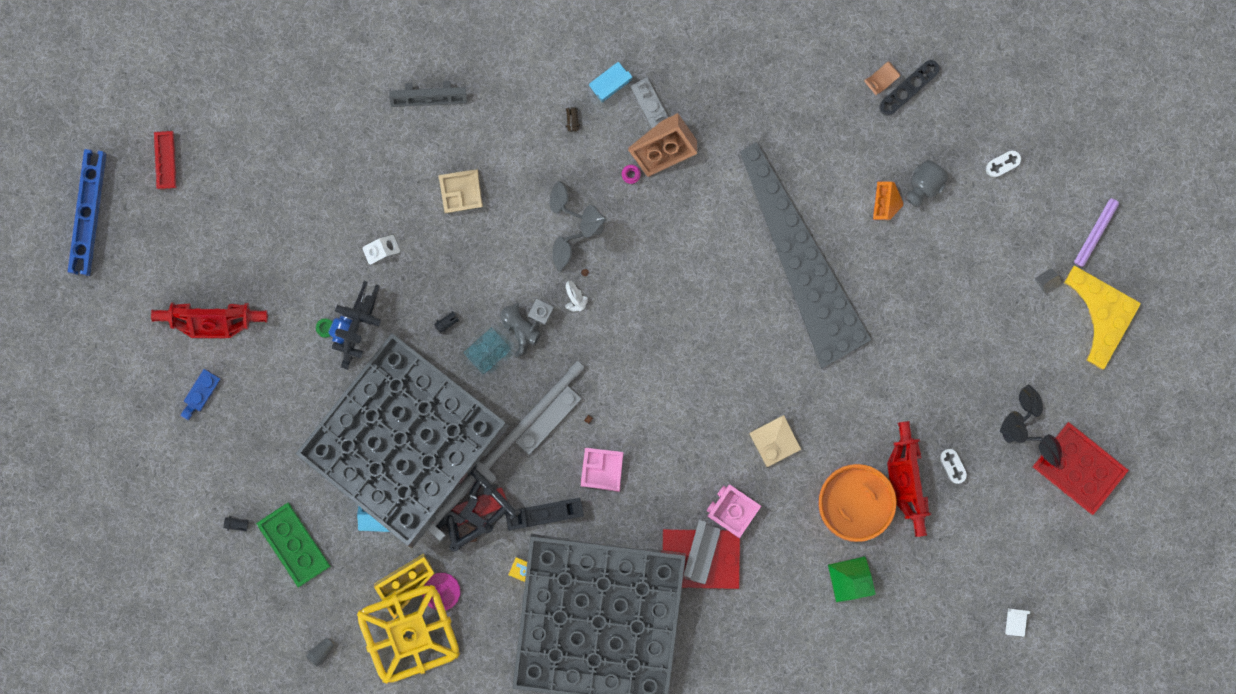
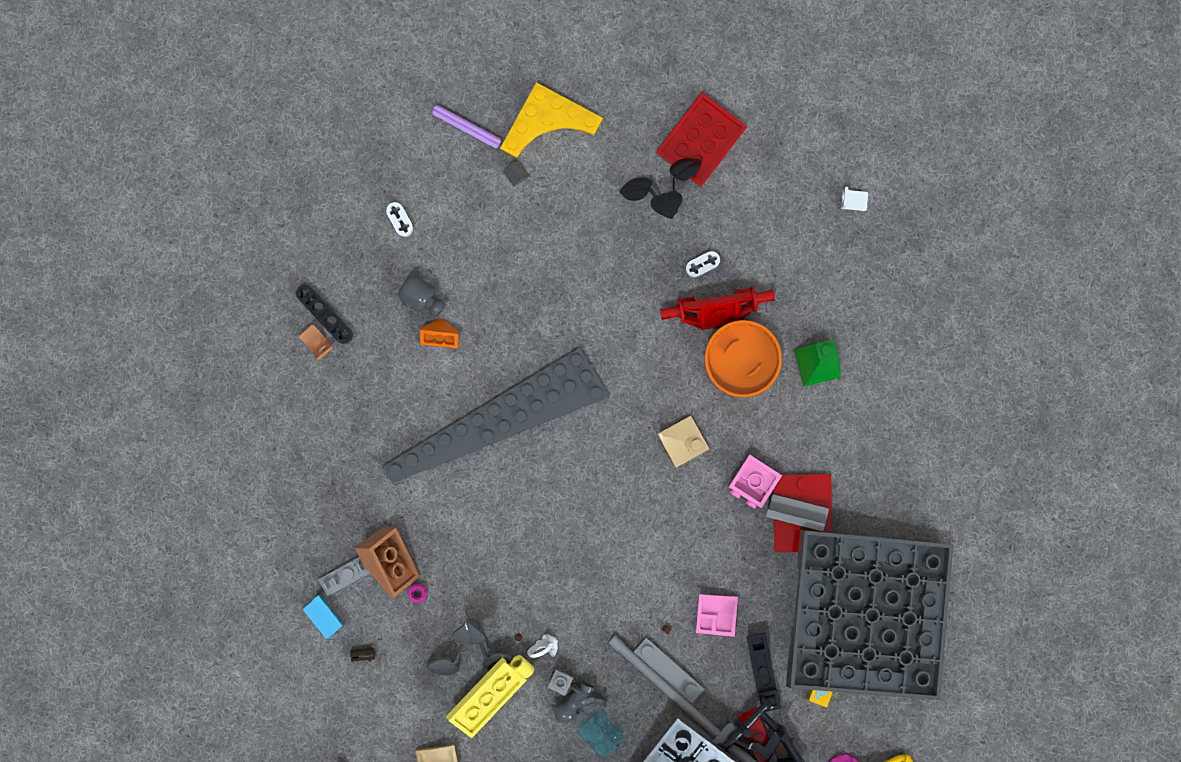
camera: 95 degrees left, 0 degrees up
(530, 242) = (490, 694): none -> light yellow hinge

